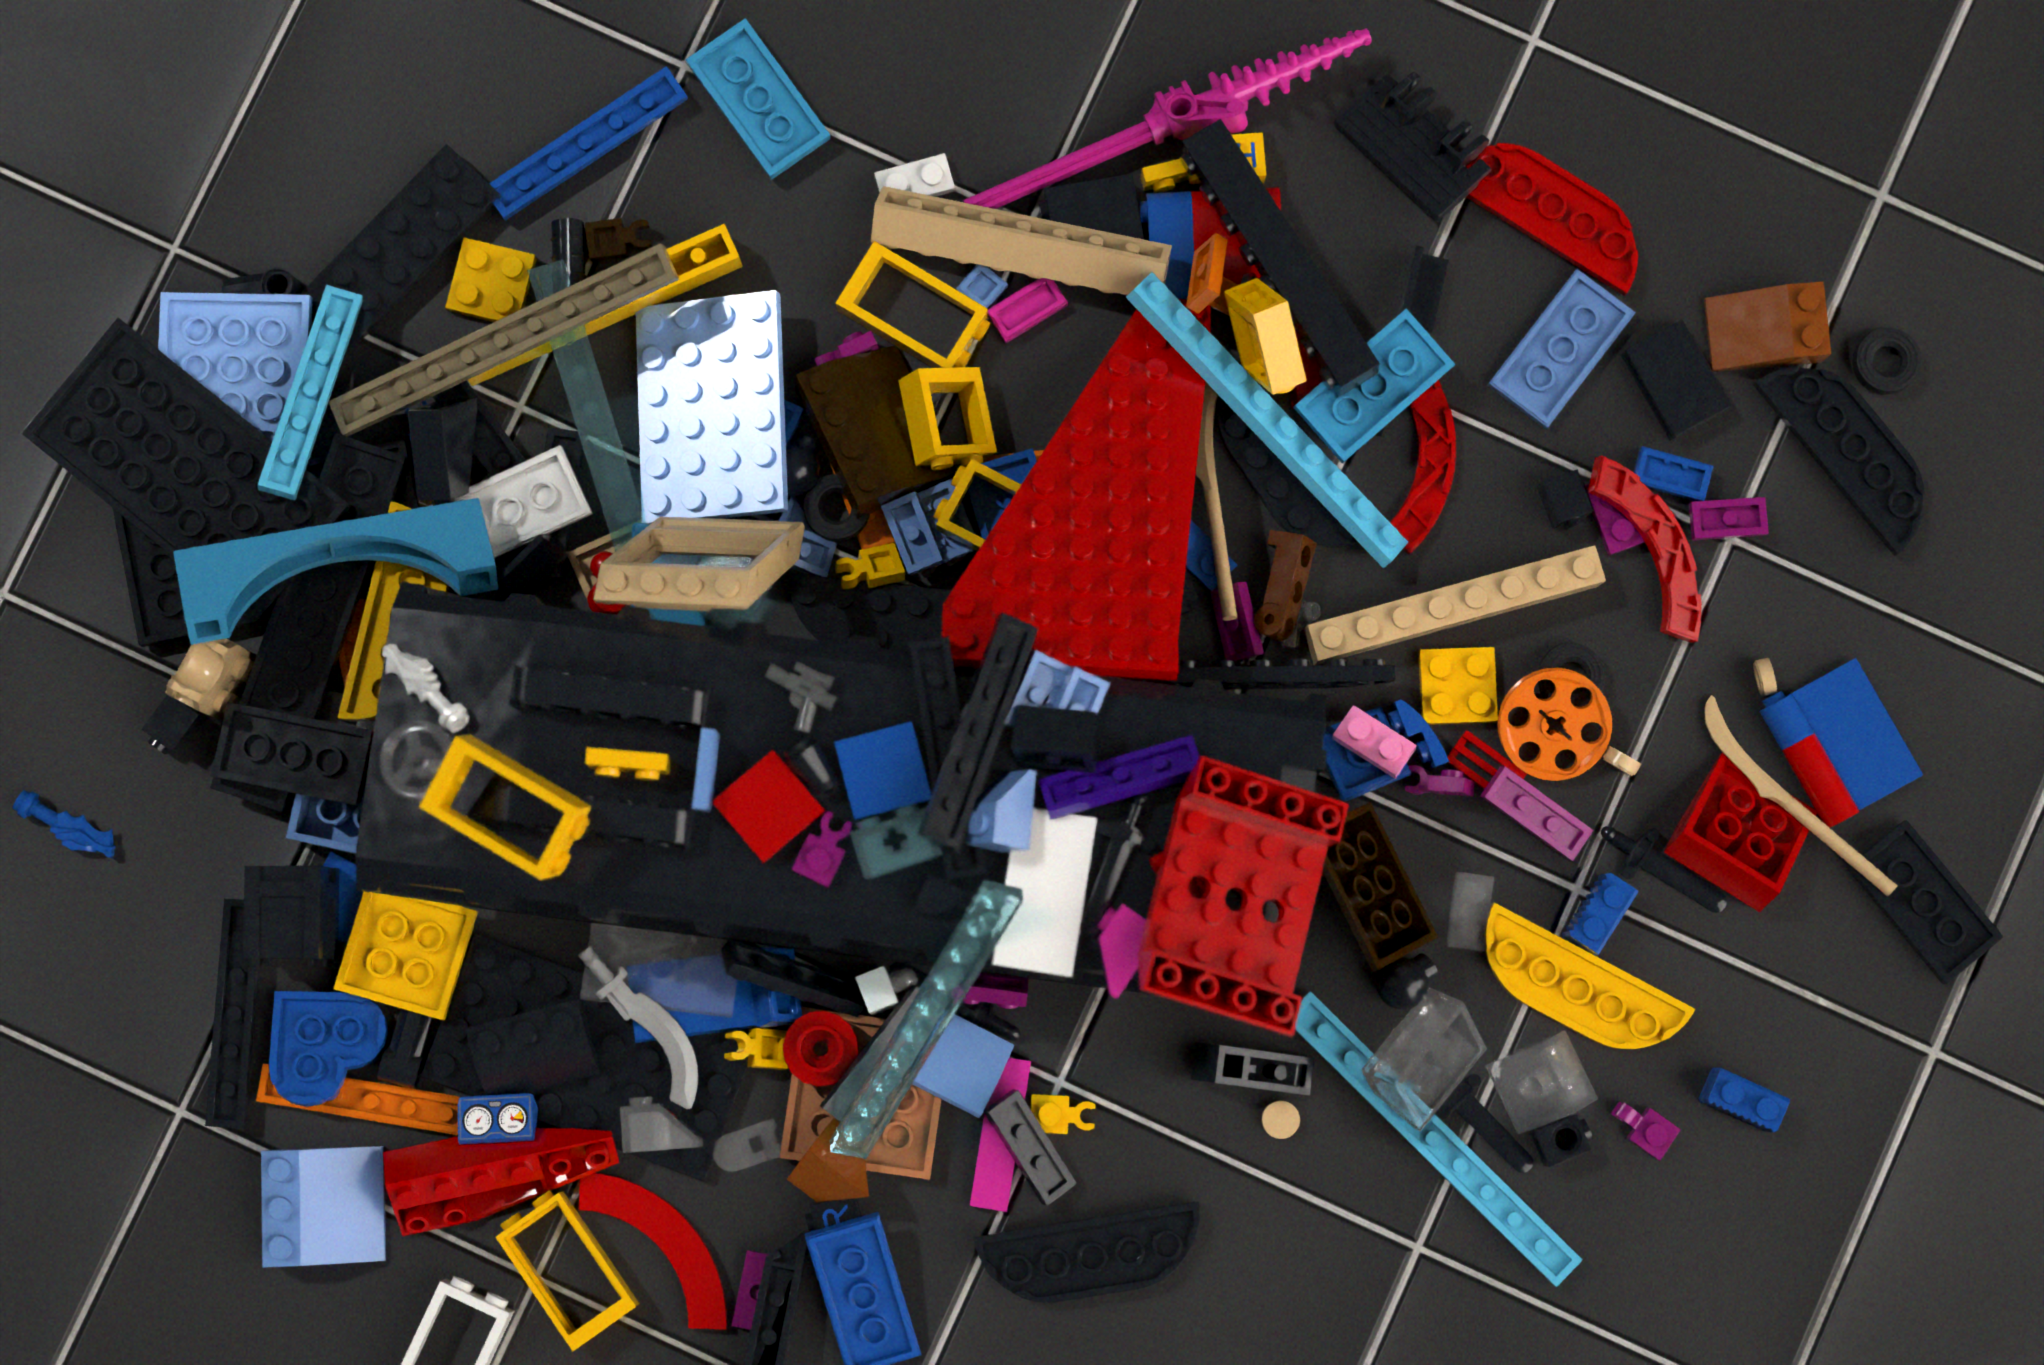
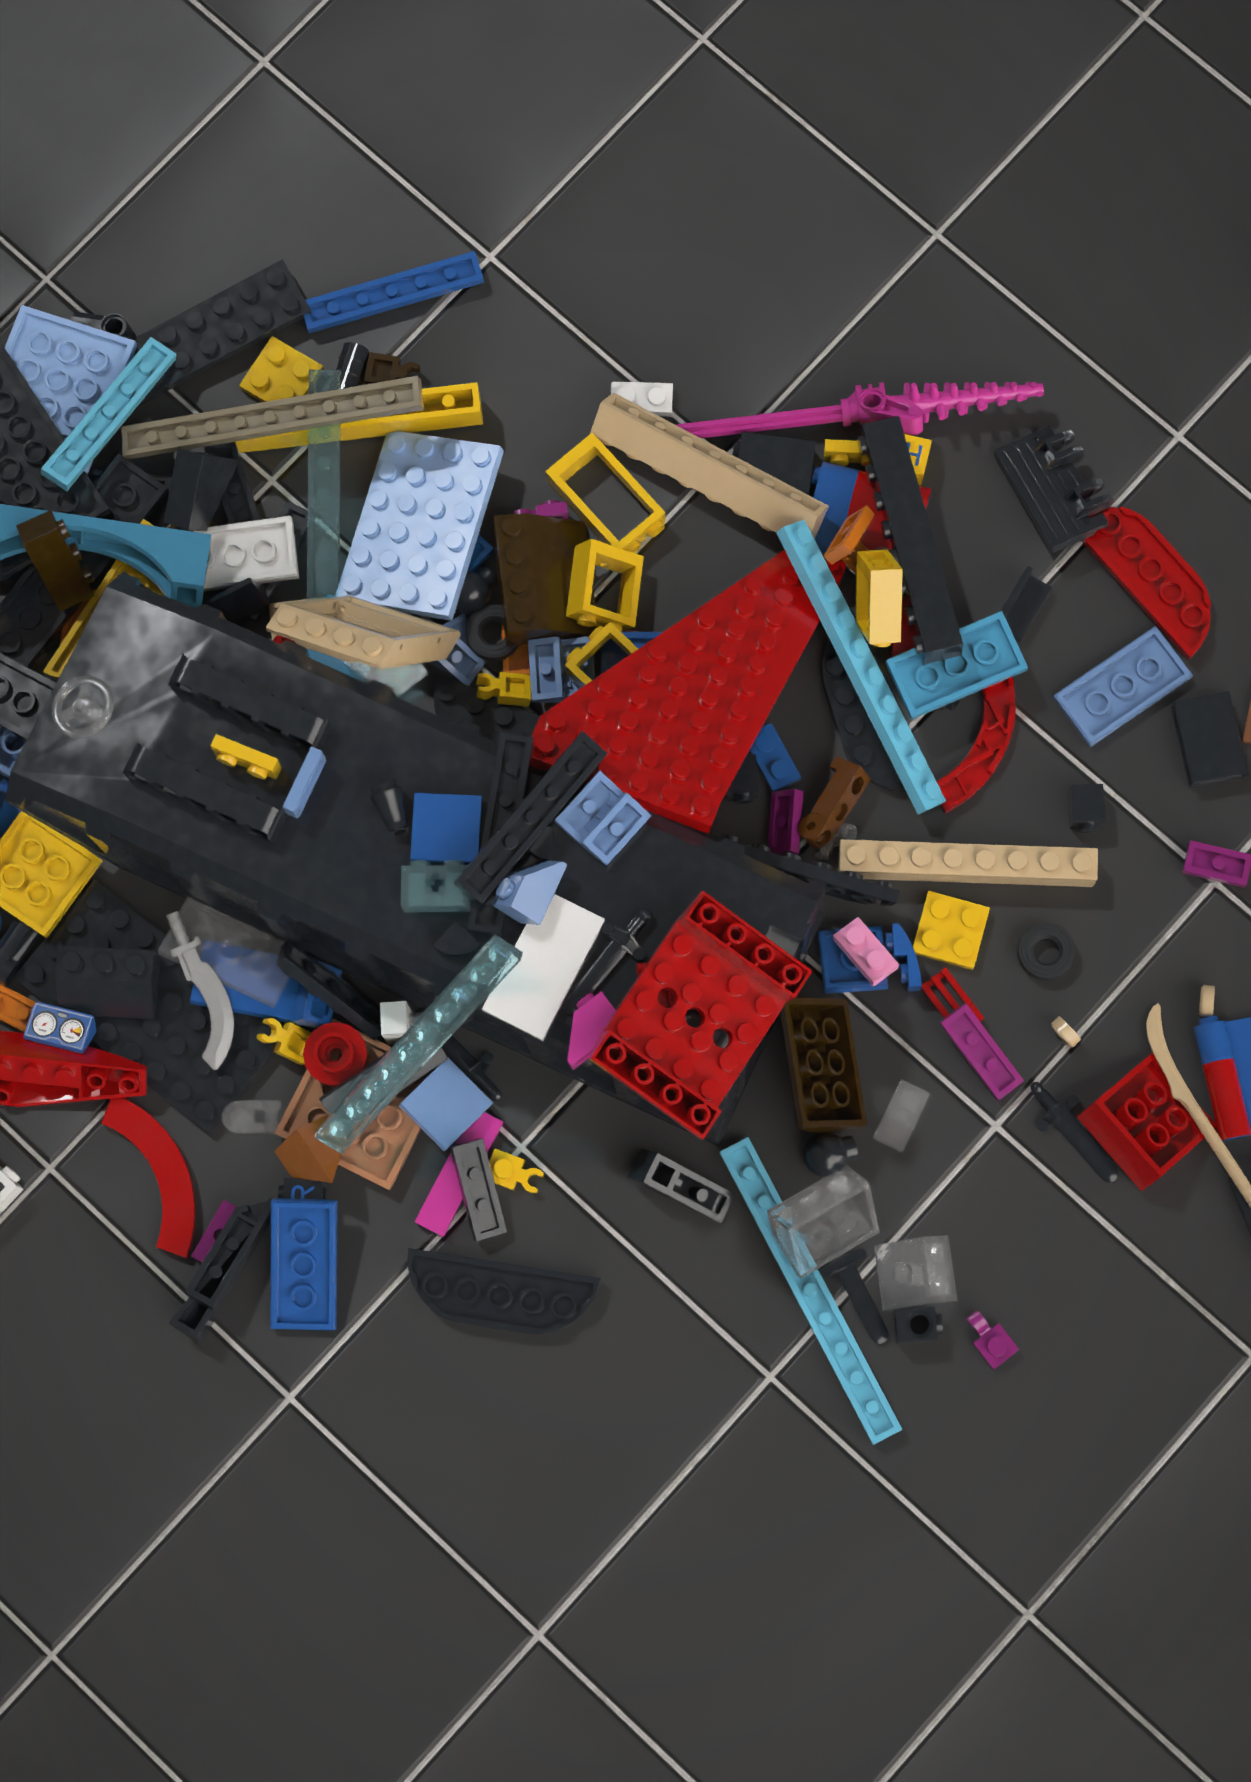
camera: 30 degrees right, 5 degrees down
(313, 585) = (56, 559): none -> dark brown brick
(419, 679) = (108, 648): white piece -> none
(450, 777) = (101, 723): yellow window -> none
(517, 1224) = (88, 1218): yellow window -> none
(654, 1128) = (181, 1075): clear slope -> none
(758, 99) = (538, 298): dark azure plate -> none
(768, 806) = (345, 828): red tile -> none
(806, 691) = (406, 747): dark grey piece -> none
(820, 856) = (374, 880): magenta plate -> none
(982, 286) = (669, 496): medium blue tile -> none
(1003, 990) = (480, 1047): magenta plate -> none
(1026, 308) = (698, 524): dark pink tile -> none
(1055, 739) = (590, 844): black panel -> none
(1119, 777) = (632, 891): dark purple plate -> none
(1207, 474) = (799, 696): tan piece -> none
(1280, 1119) = (690, 1234): tan tile -> none
(1449, 783) = (915, 1004): magenta plate -> none
(1553, 742) = (1034, 988): orange wedge -> none
(1578, 986) = (971, 1204): yellow plate -> none
(1600, 913) = (1007, 1149): blue brick -> none
(1614, 528) = (1123, 832): magenta plate -> none
(1664, 540) = (1157, 862): red tile -> none
(1673, 474) = (1181, 814): blue plate -> none
(1744, 1100) = (1079, 1341): blue brick -> none

